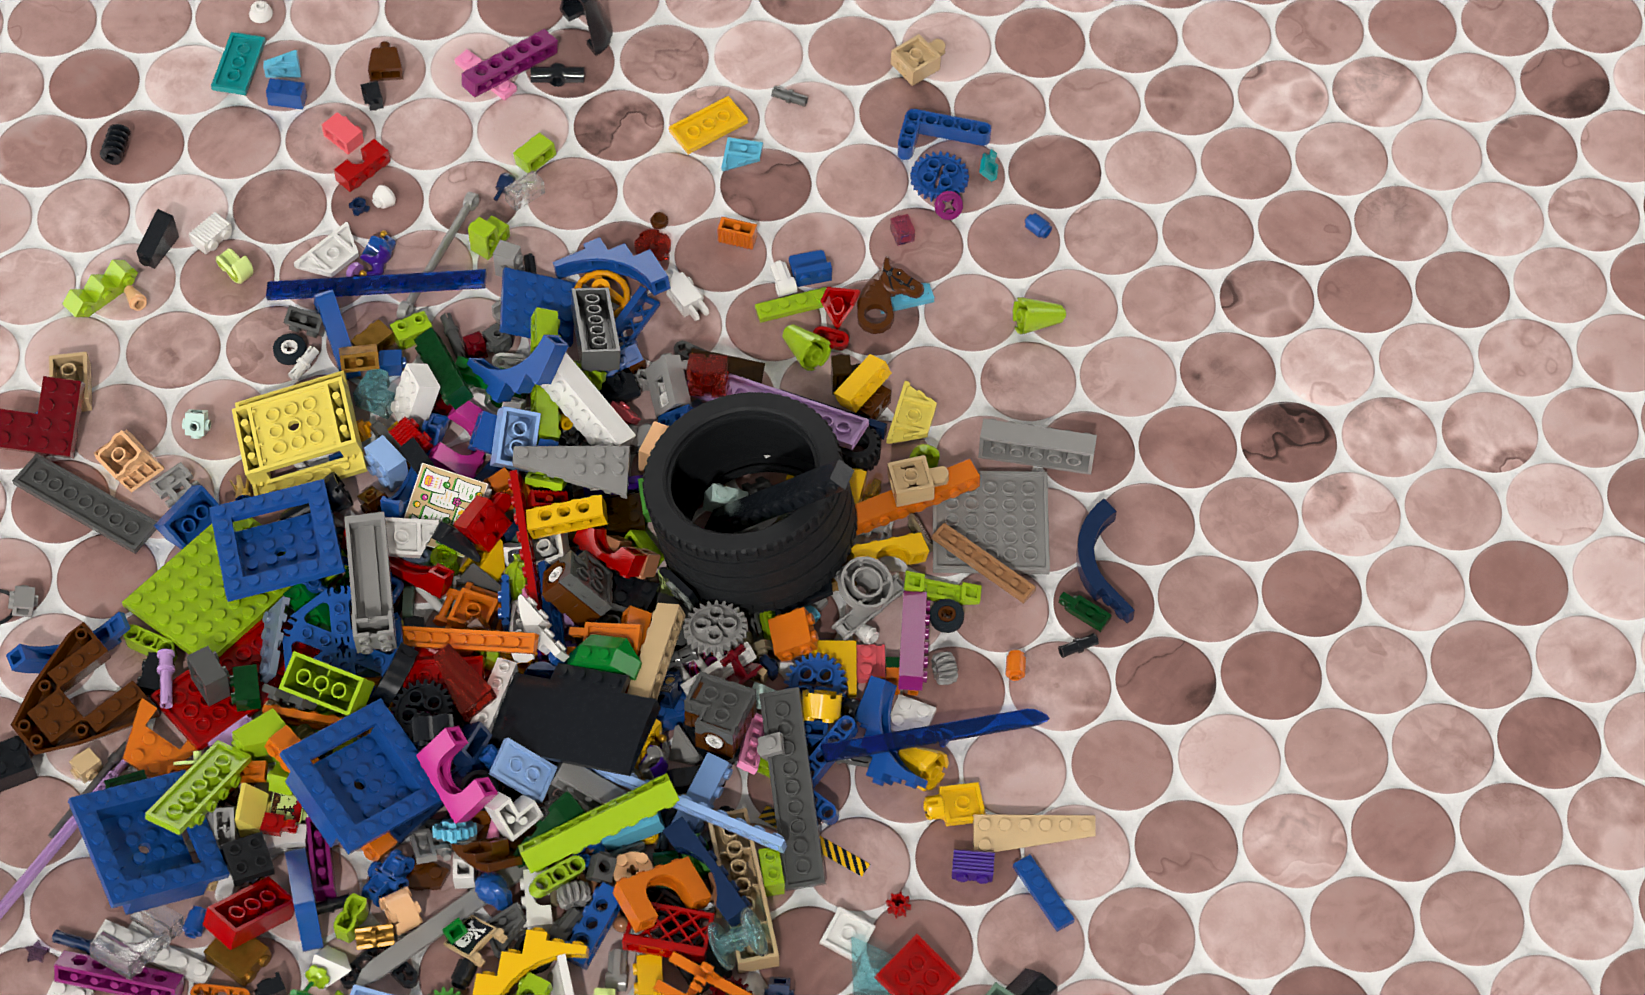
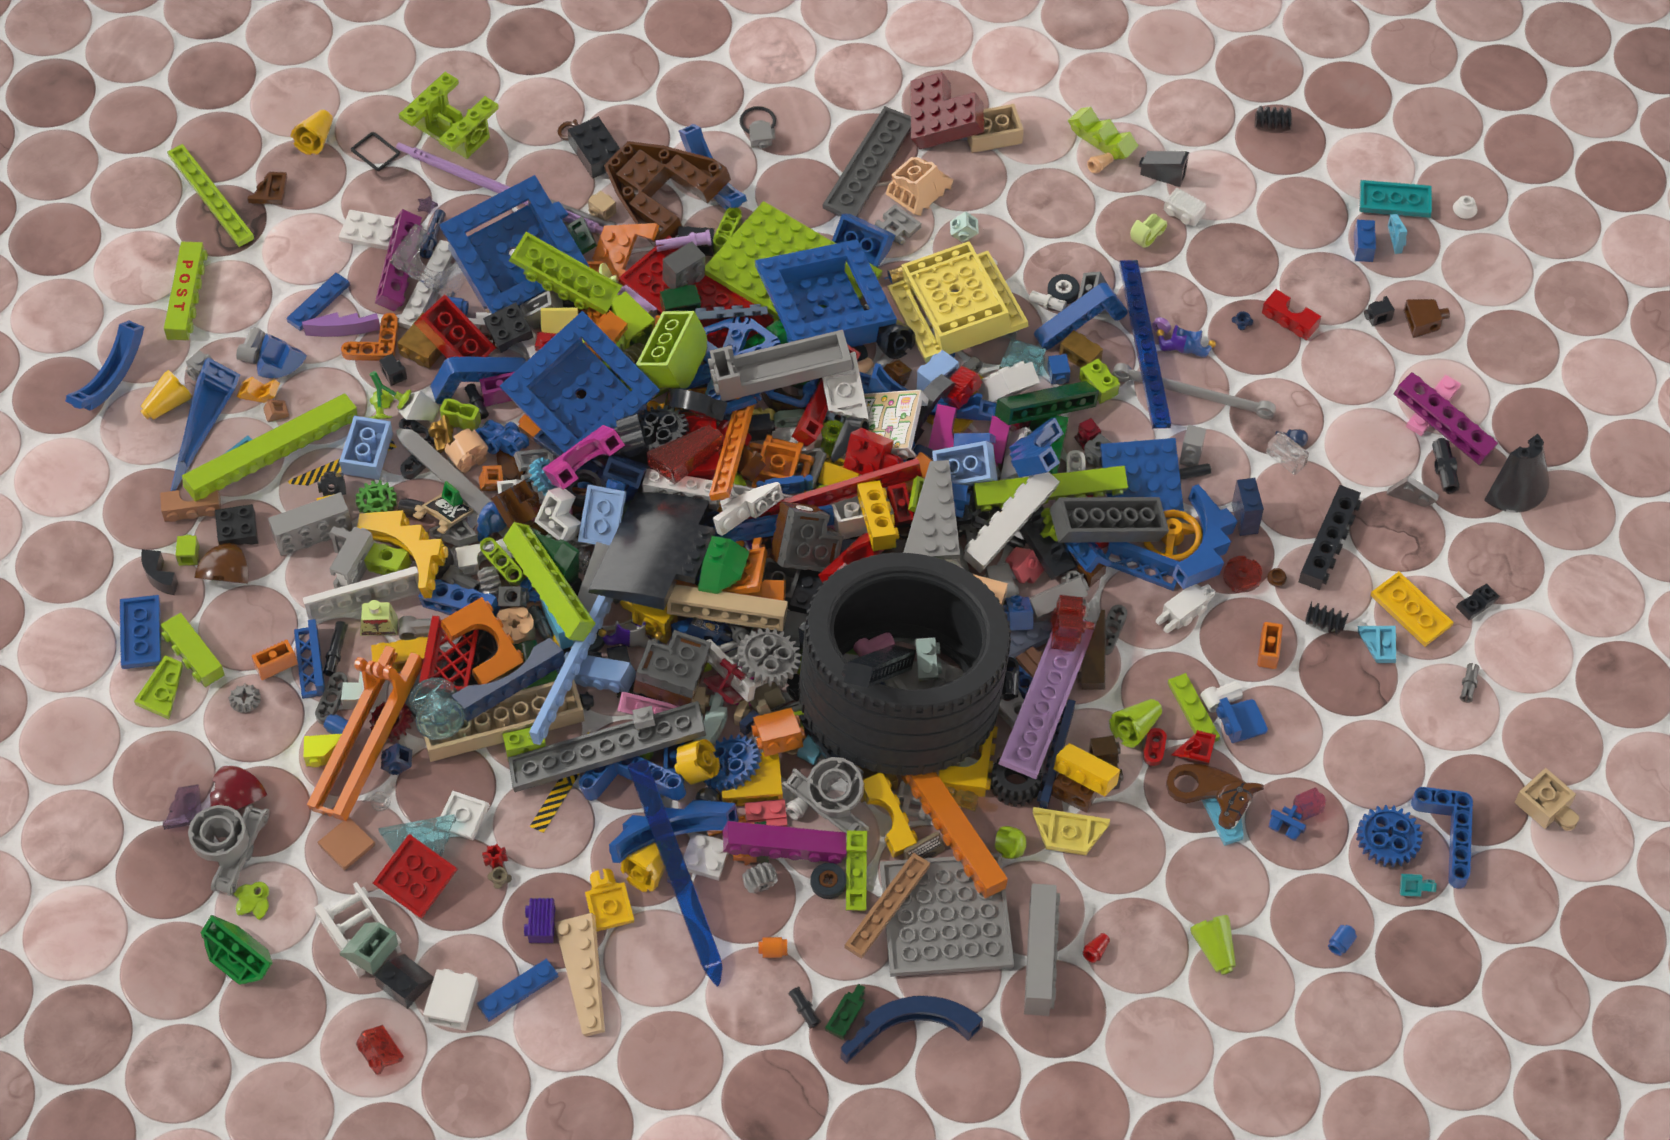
camera: 85 degrees right, 0 degrees up
(330, 254) = (1181, 306): white wing -> none
(343, 133) = (1327, 293): coral brick -> none
(359, 358) = (1046, 334): pearl gold brick -> none
(364, 429) = (977, 351): light orange gear -> none
(383, 197) = (1254, 336): white cone -> none
(441, 889) = (489, 477): none -> orange brick
(451, 331) = (1104, 414): dark grey pin -> none
(486, 235) = (1223, 429): lime brick -> none
(534, 153) = (1335, 455): lime brick -> none
(584, 102) = (1413, 492): none -> flat silver wing
(585, 224) = (1247, 506): none -> dark blue brick
(623, 172) = (1310, 574): none -> black brick
(705, 77) = (1478, 602): none -> black slope
(712, 186) = (1326, 618): none -> black piece
(914, 481) = (964, 820): tan brick -> none
(916, 255) = (1295, 826): none -> blue hips
(919, 898) = (496, 872): none -> dark tan plate
(957, 204) = (1349, 837): magenta gear -> none
(1033, 408) = (1095, 949): none -> red cone
(1052, 950) = (451, 999): none -> white brick

